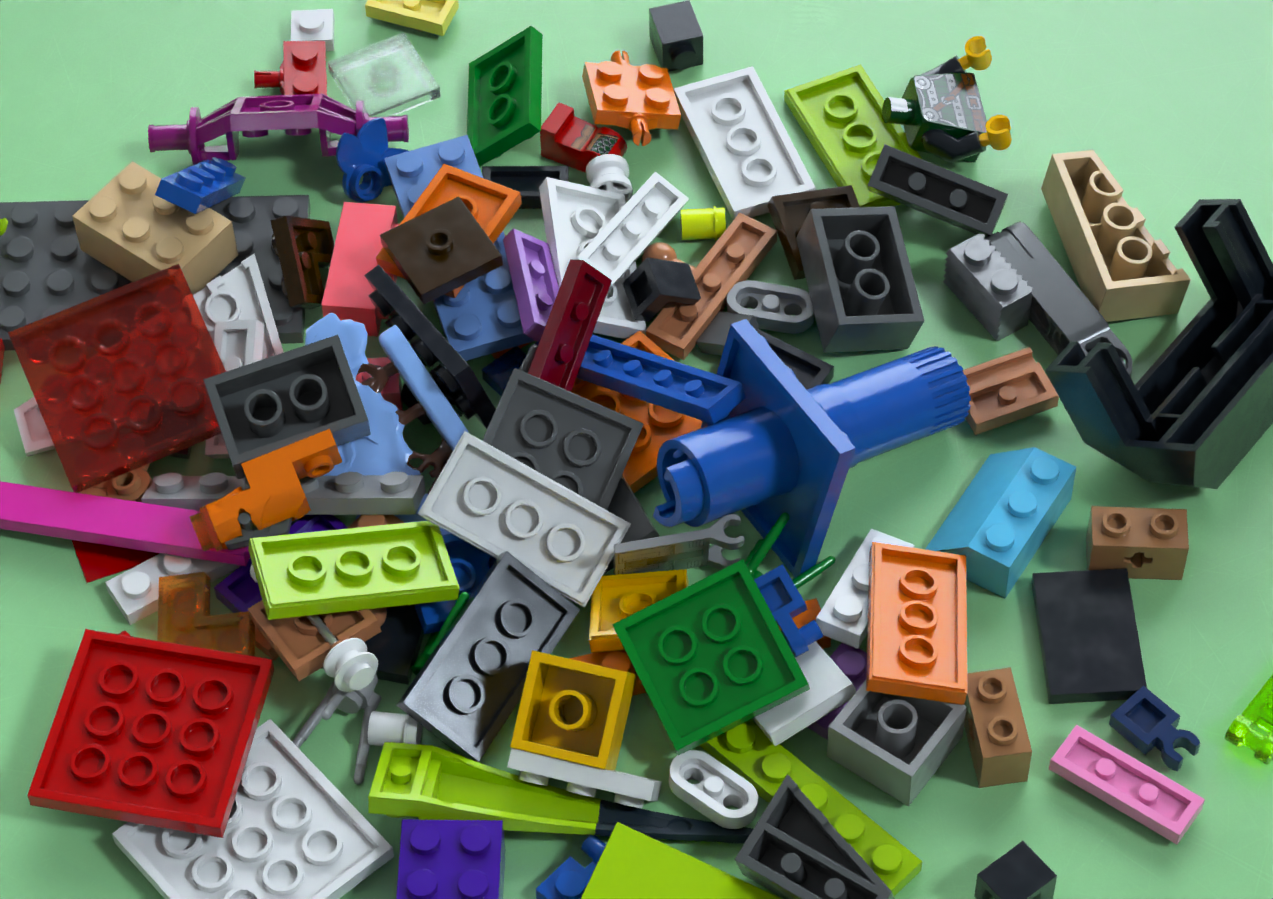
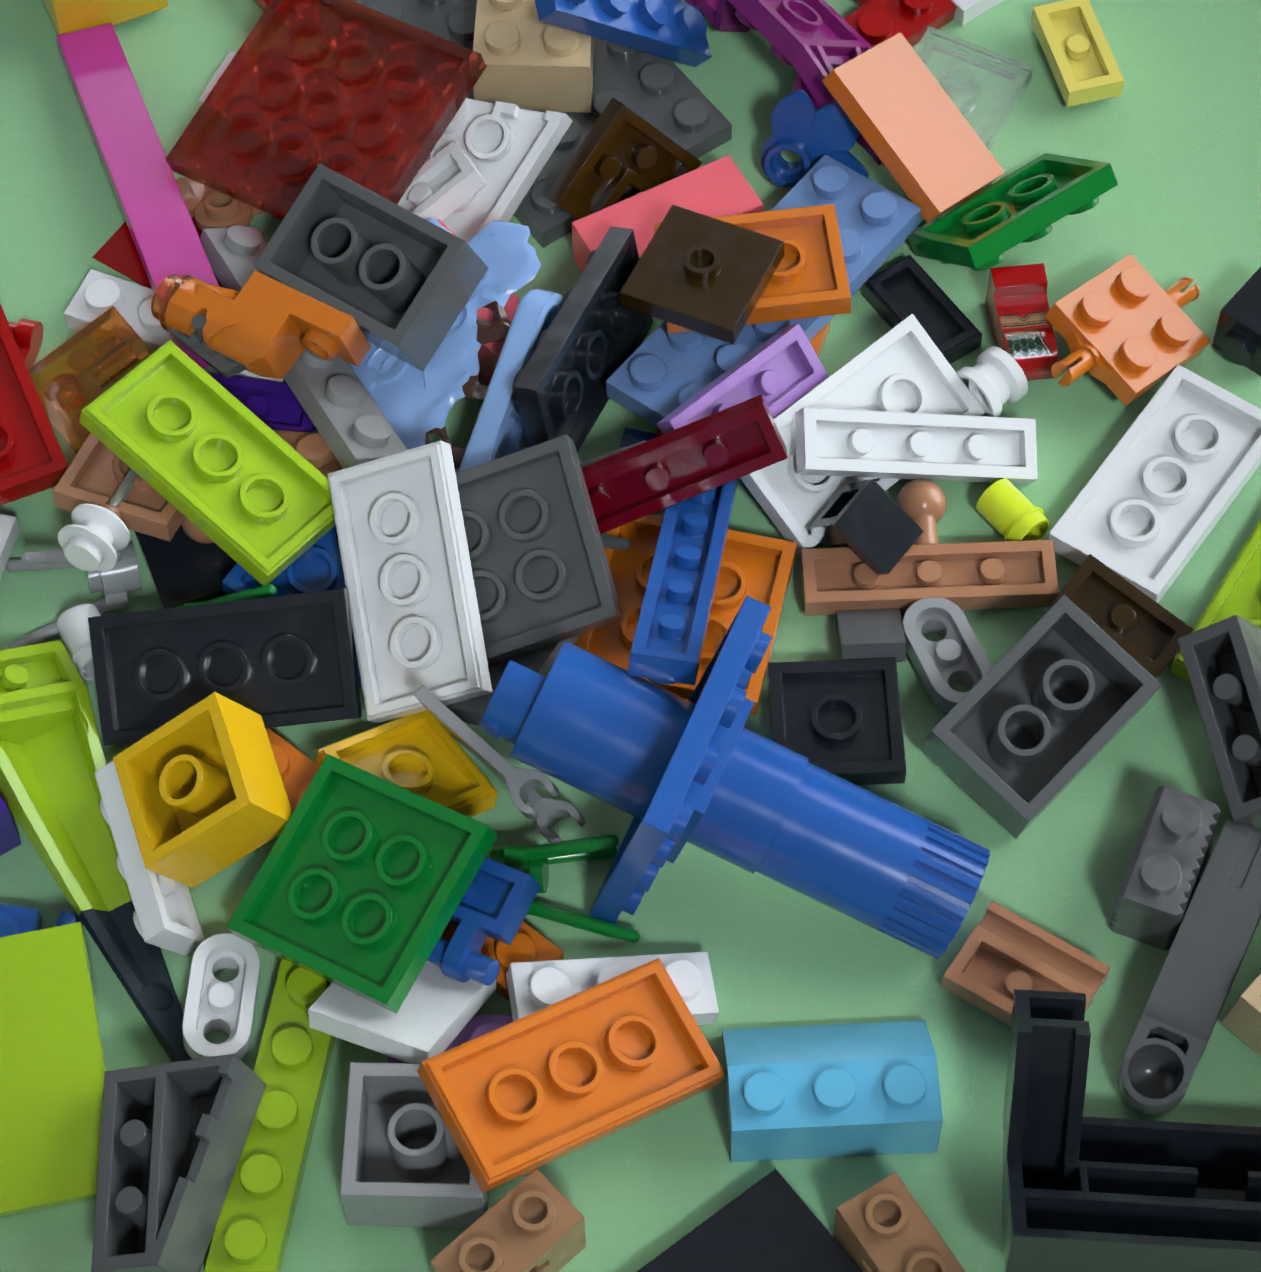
camera: 55 degrees right, 5 degrees up
(408, 103) = (913, 126): none -> tile

